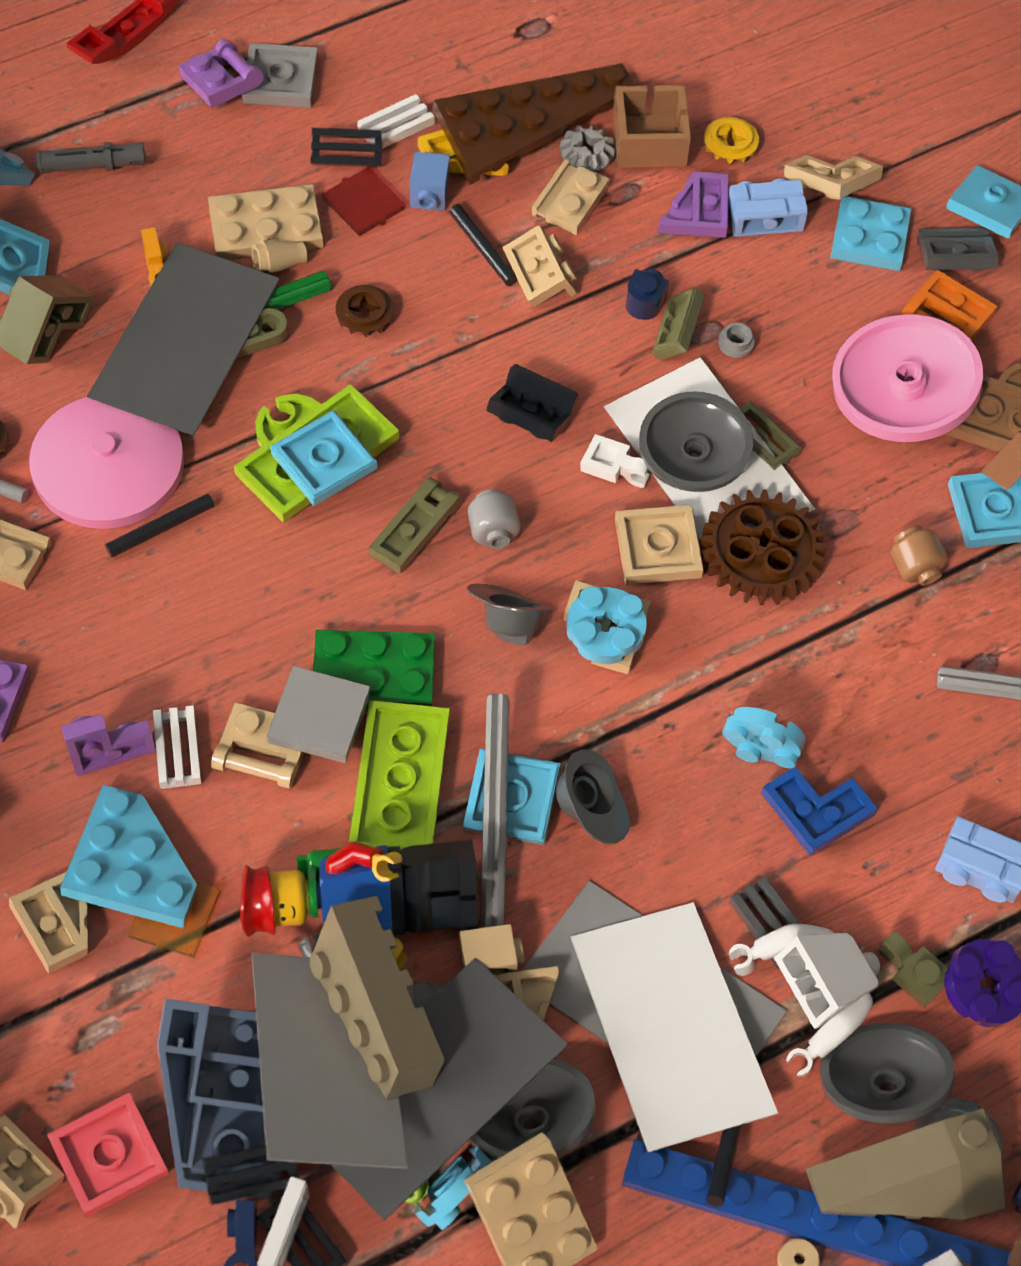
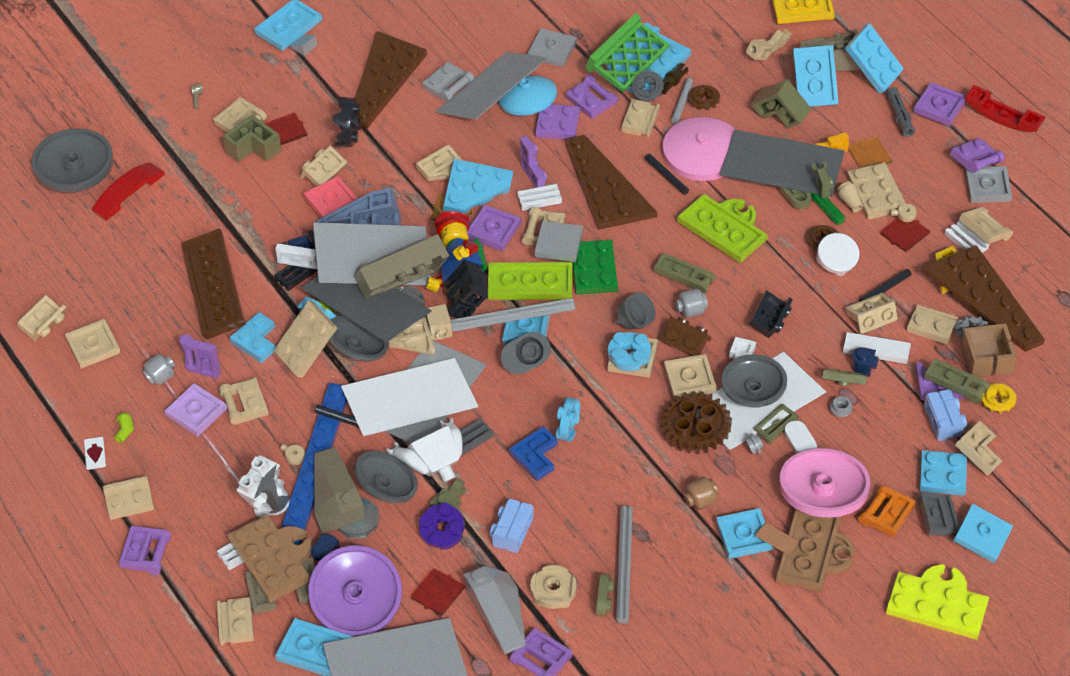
camera: 90 degrees right, 10 degrees down
(87, 101) = (940, 104): none -> medium lavender plate
(176, 218) = (869, 152): none -> clear yellow piece
(188, 626) = (607, 191): none -> reddish brown wing
(249, 831) = (494, 227): none -> medium lavender plate
(256, 277) = (823, 181): none -> olive plate
(316, 146) = (930, 221): black tile -> none
(323, 457) = (712, 224): medium azure plate -> none
(329, 188) = (905, 212): none -> tan piece
(381, 89) = (985, 226): none -> tan plate
(413, 290) = (837, 253): none -> white tile
(429, 181) = (920, 254): medium blue brick -> none
(567, 539) = (684, 337): none -> reddish brown bracket
(612, 276) = (885, 348): none -> white tile
(712, 174) = (957, 380): none -> olive plate
(800, 406) = (799, 437): none -> white tile
(812, 468) = (754, 443): none -> light grey plate

